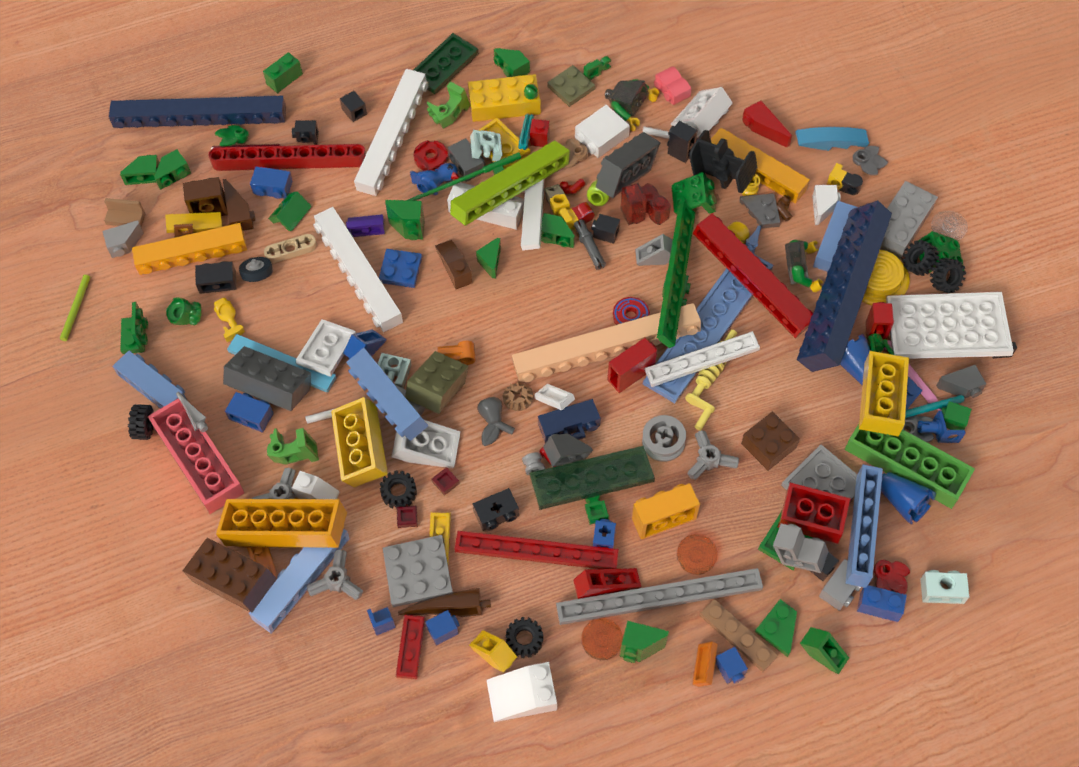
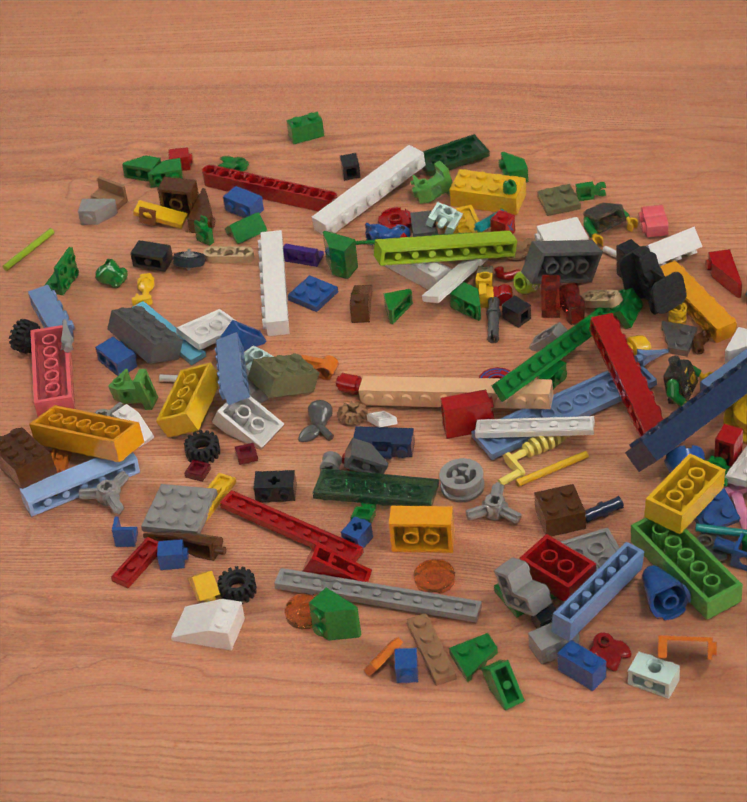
camera: 30 degrees right, 20 degrees down
(174, 142) = (185, 158): none -> red brick
(189, 249) = (131, 230): light orange brick -> none
(197, 111) = (217, 139): dark blue brick -> none
(252, 232) = (203, 232): none -> green plate
(306, 131) = (297, 173): black brick -> none
(499, 364) = (348, 383): none -> red brick
(685, 195) = (602, 298): none -> tan beam
(732, 394) = (551, 468): none -> yellow bar
(803, 423) = (603, 509): none -> dark blue pin
(946, 551) = (663, 639): none -> orange panel

